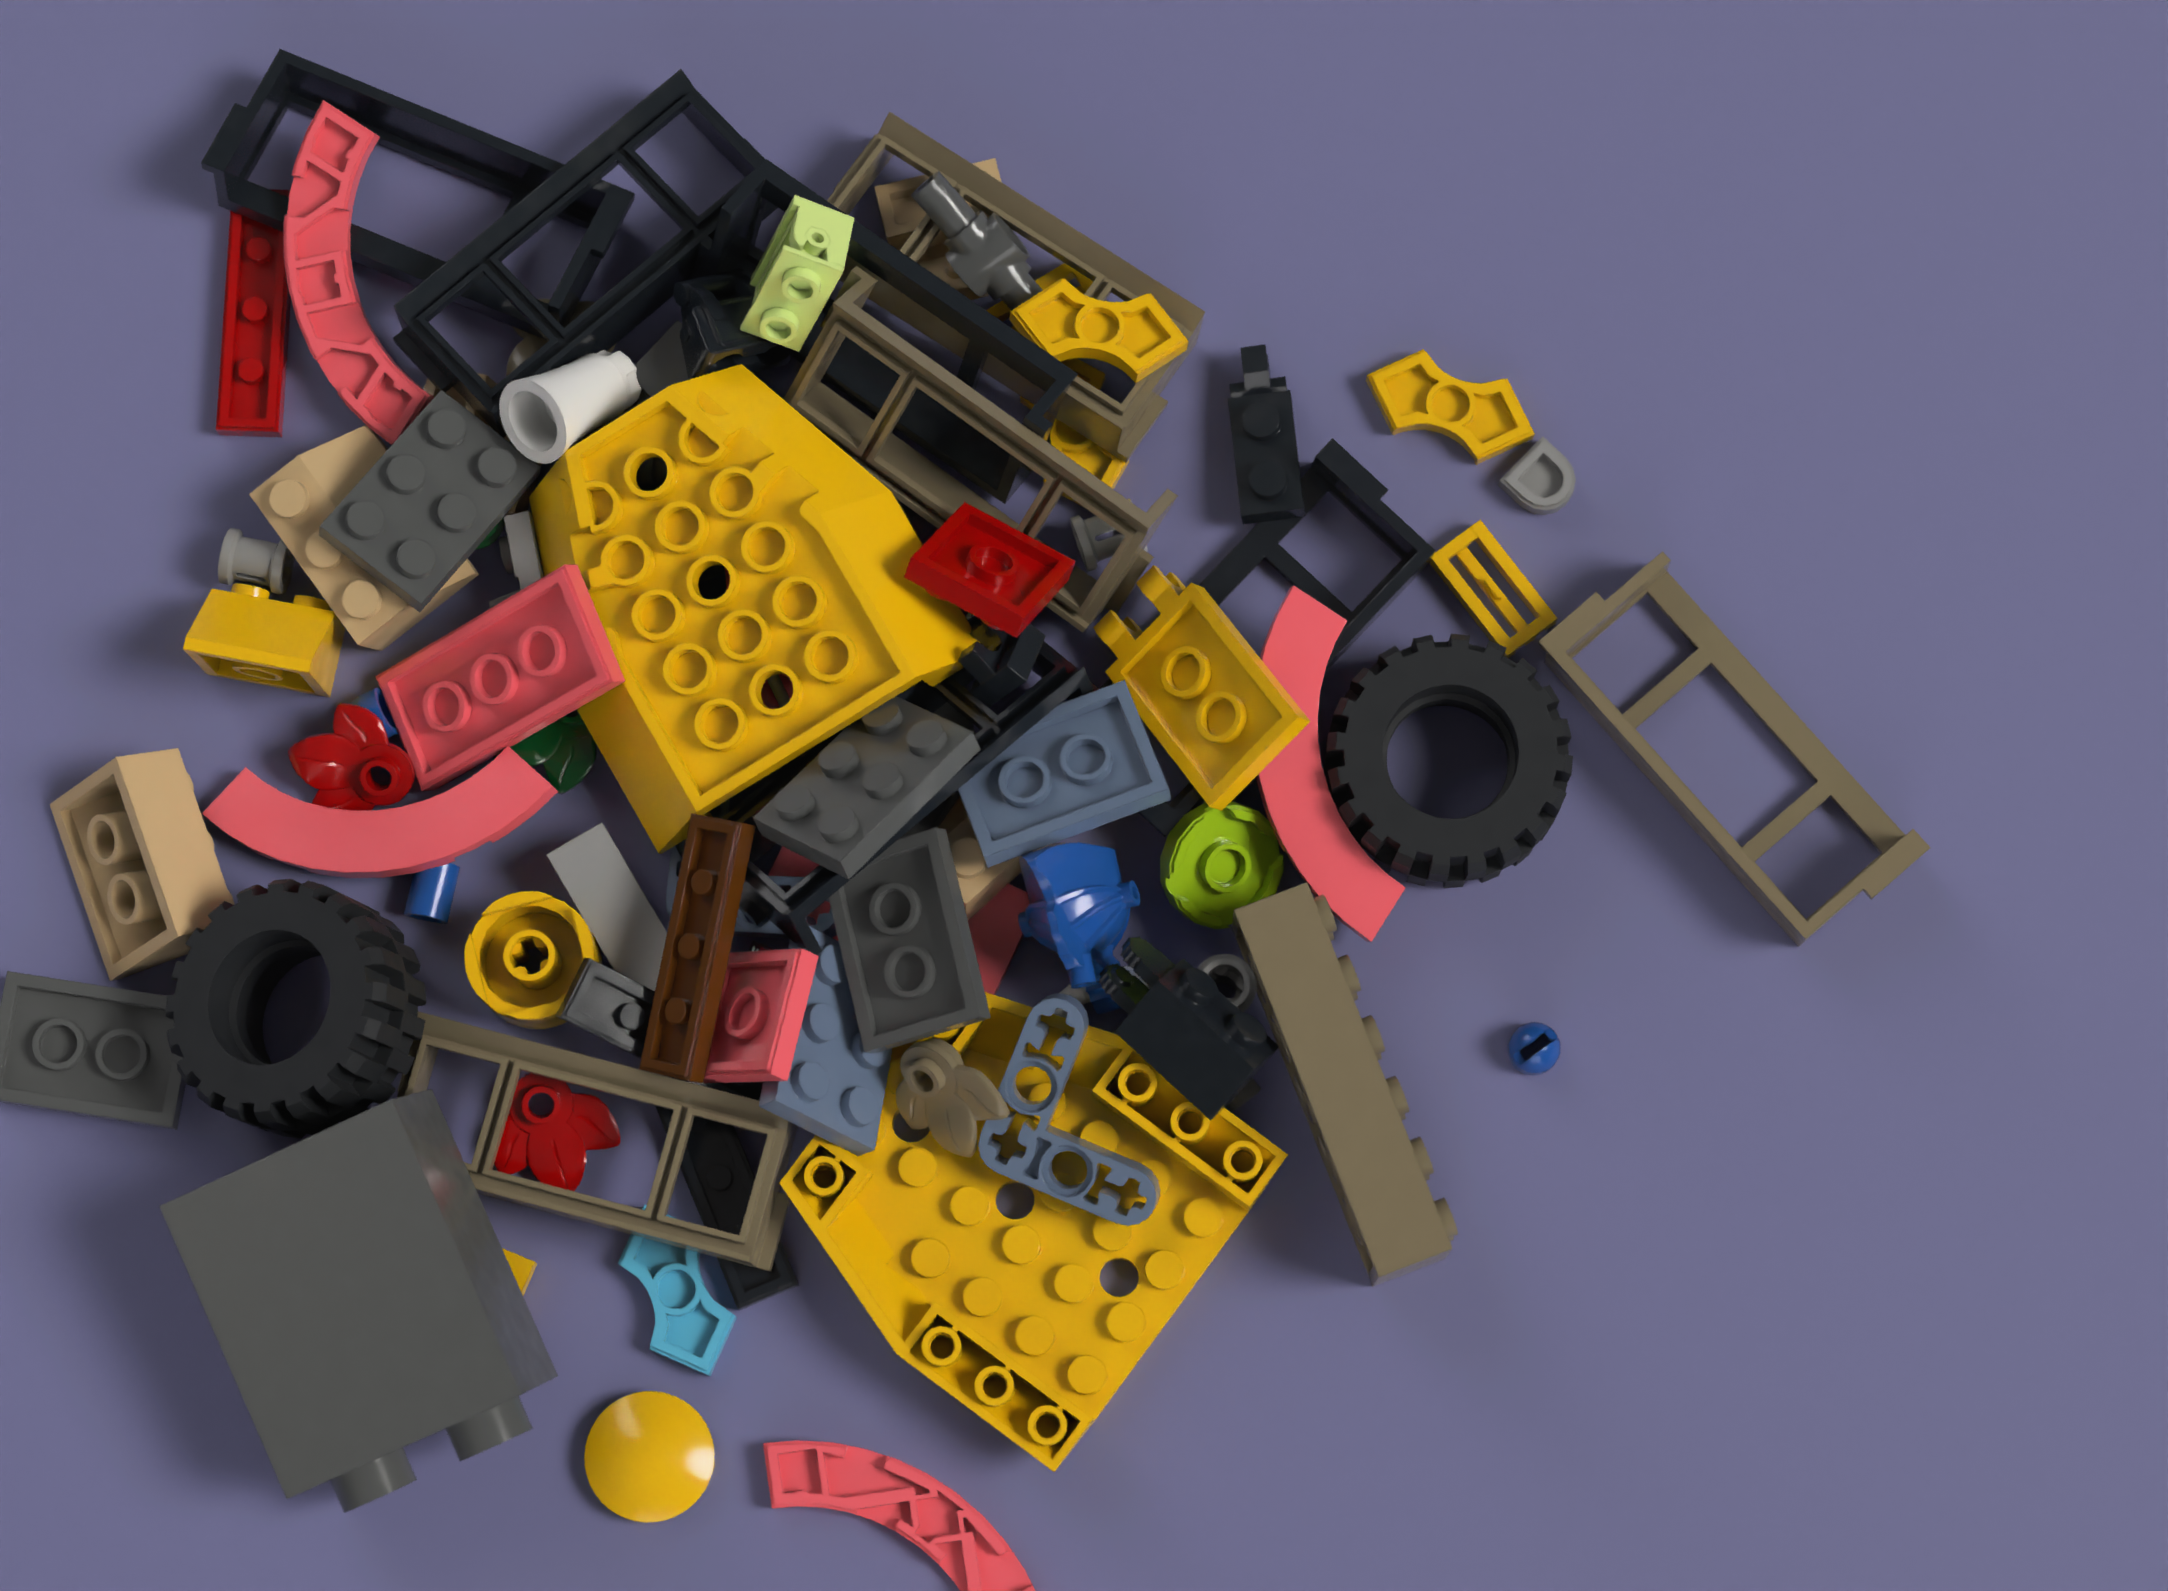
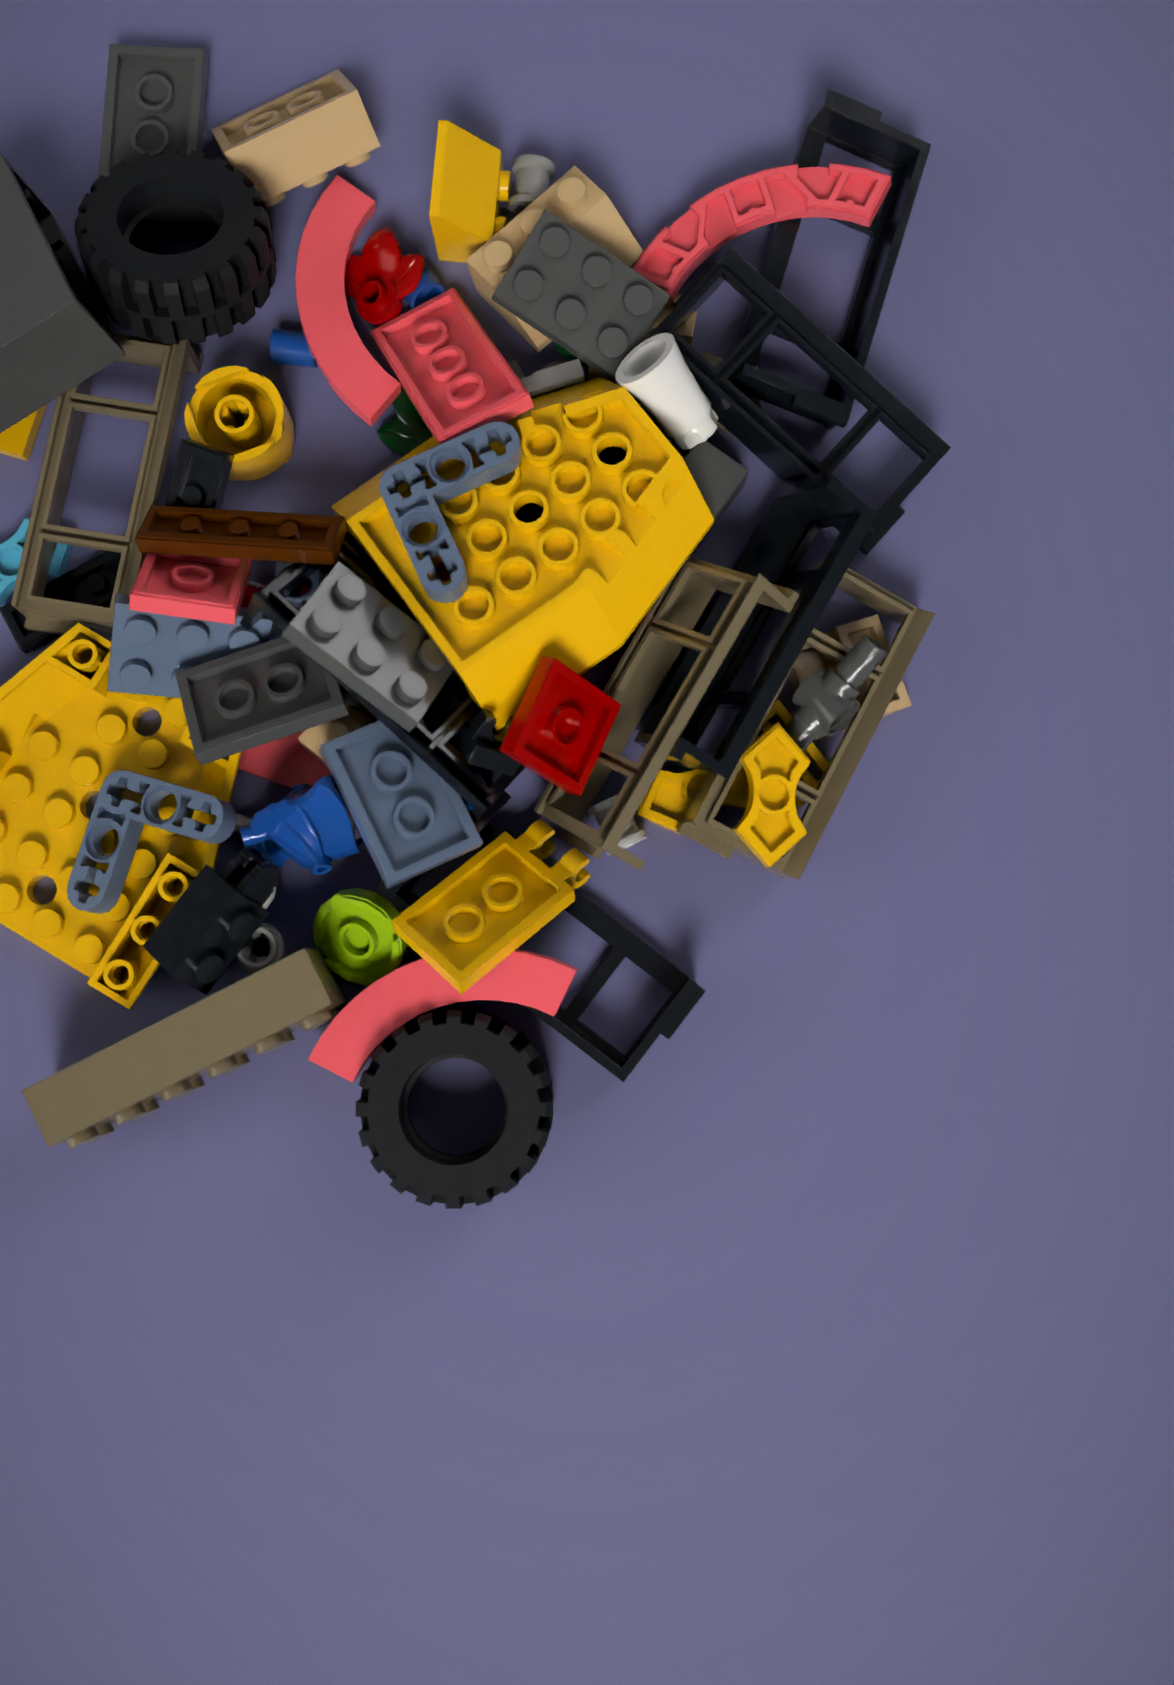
camera: 85 degrees right, 5 degrees up
(254, 331) = (704, 166): red tile -> none
(556, 1141) = (114, 457): red plate -> none
(612, 904) = (291, 475): light grey slope -> none
(695, 704) = (423, 502): none -> sand blue beam
(712, 327) = (741, 517): black piece -> none
(798, 273) = (786, 547): yellowish green hinge -> none
(946, 1095) = (160, 732): dark tan plate -> none
(1264, 442) = (704, 938): black hinge -> none
(1476, 415) = (745, 1104): yellow tile -> none
(1482, 536) = (620, 1143): yellow tile -> none
(1540, 480) = (699, 1160): light grey tile -> none
(1543, 1059) = (252, 1186): blue hinge -> none
(1715, 649) = (397, 1456): dark tan piece -> none

